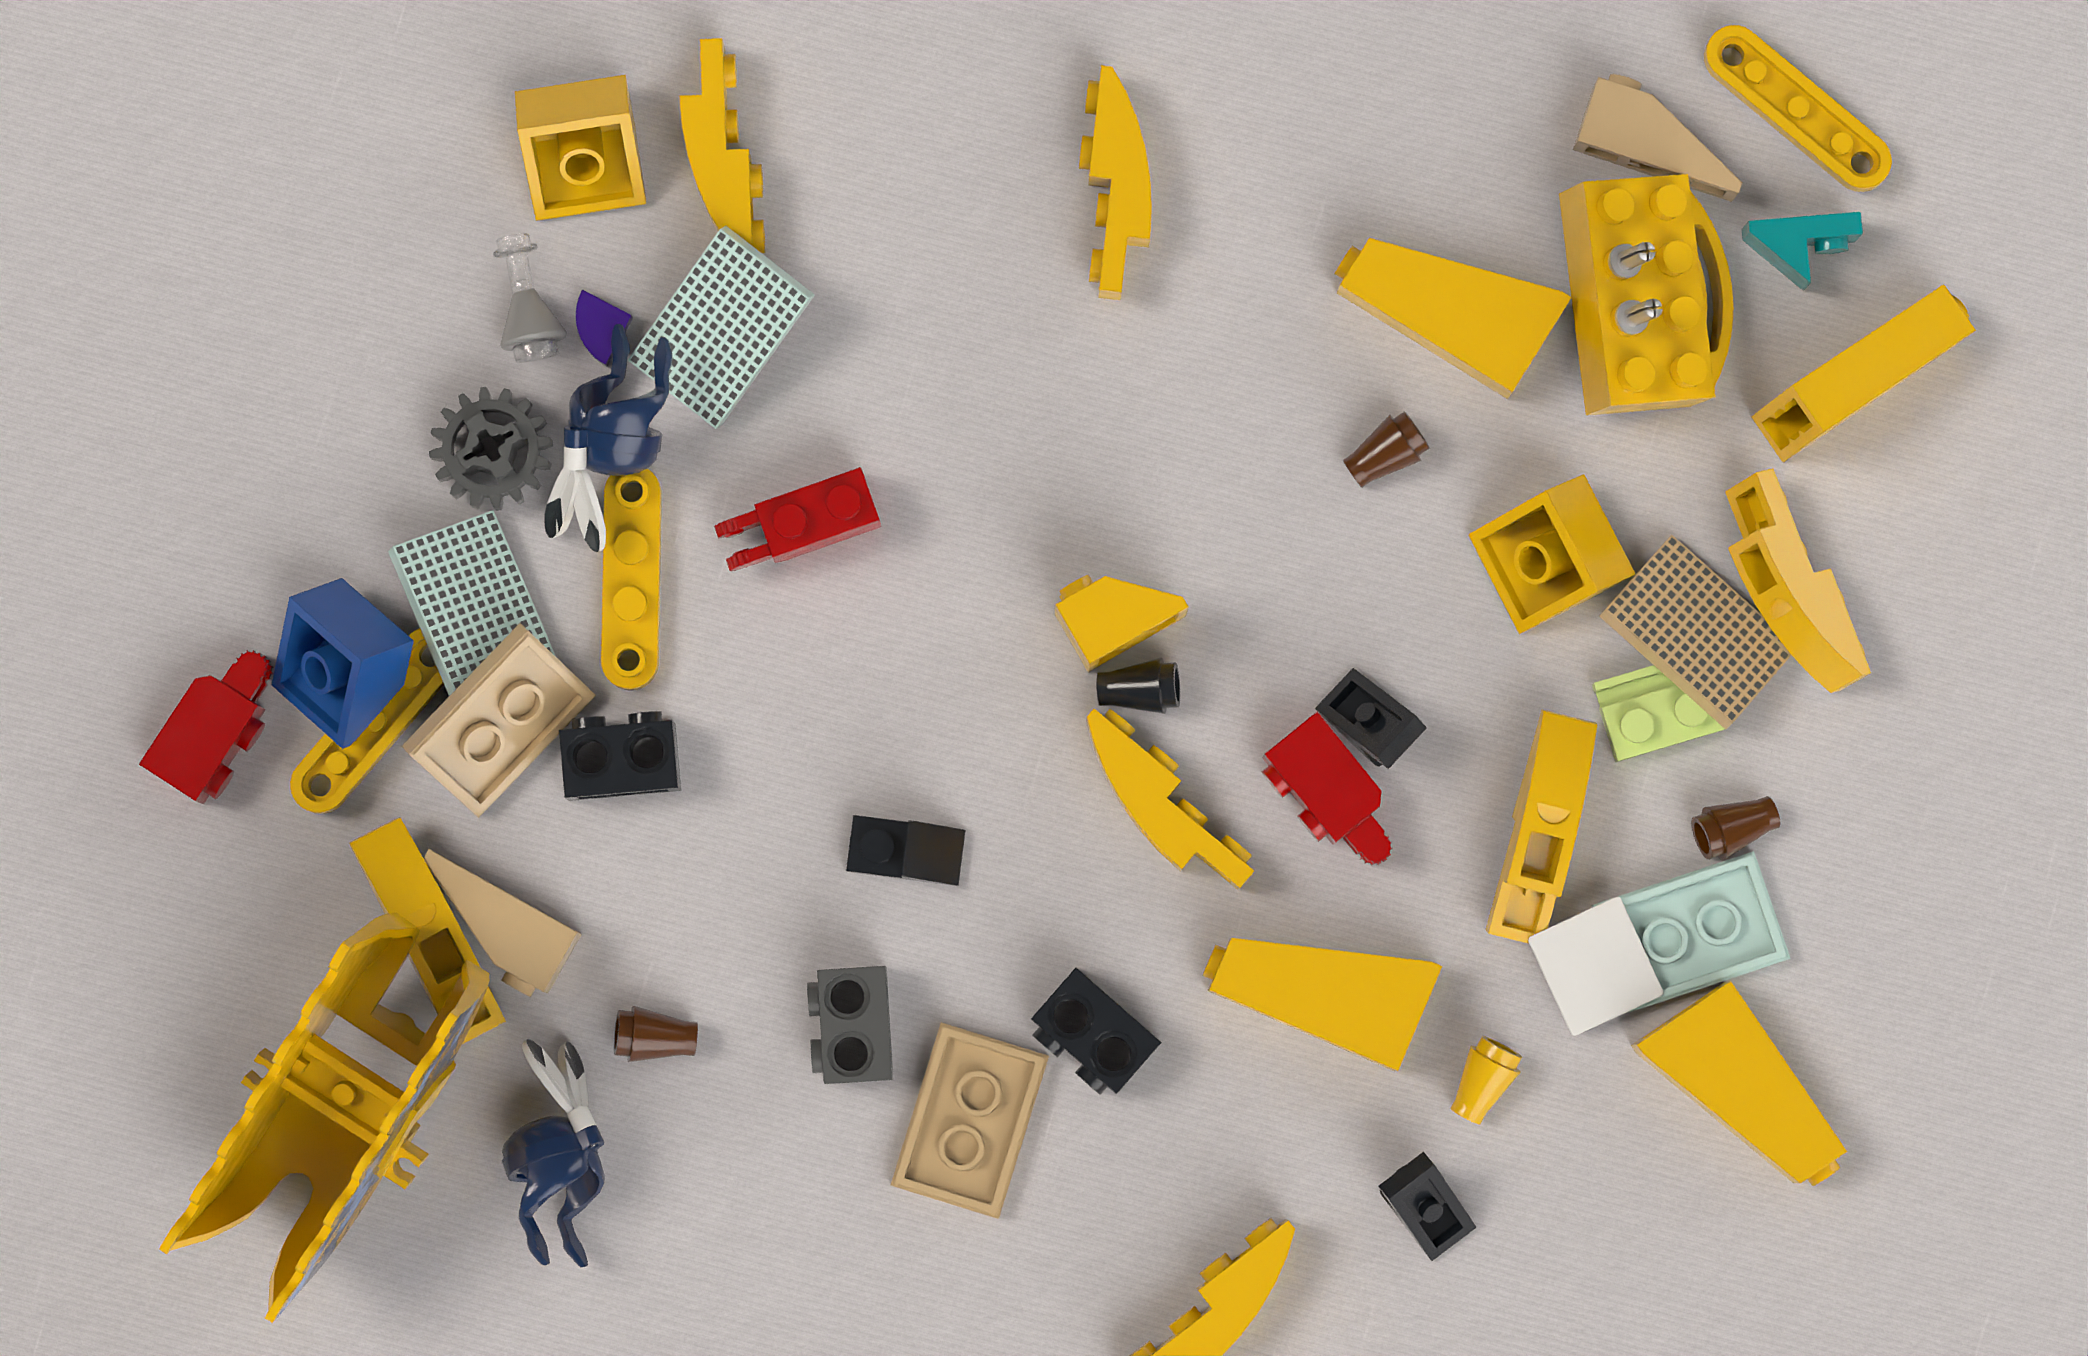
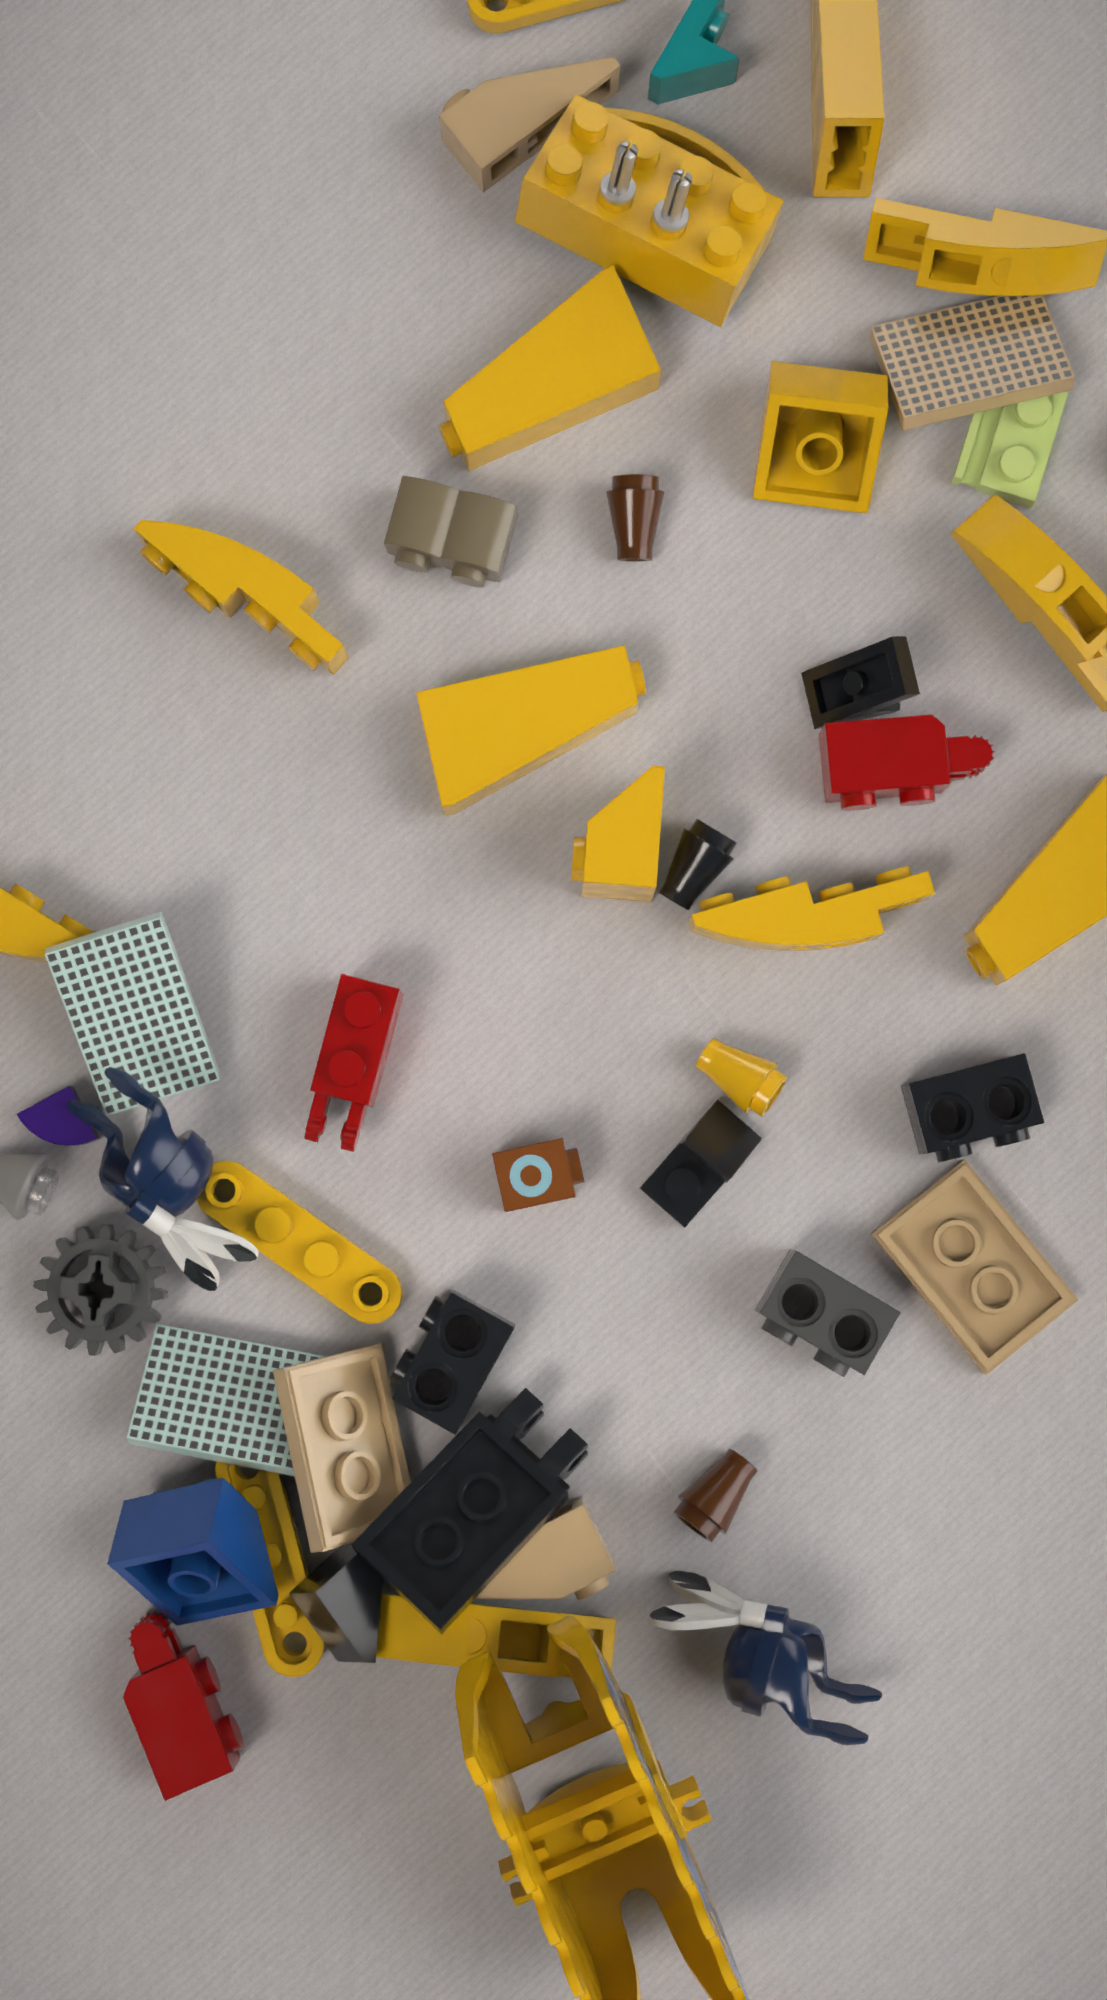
camera: 55 degrees left, 0 degrees up
(381, 799) = (343, 1605): none -> black slope
(515, 848) = (470, 1511): none -> black tile
(809, 726) = (537, 1174): none -> dark orange brick
(995, 837) = (743, 1077): none -> yellow cone
(1155, 468) = (521, 719): none -> yellow slope
(1273, 313) = (450, 531): none -> dark tan brick

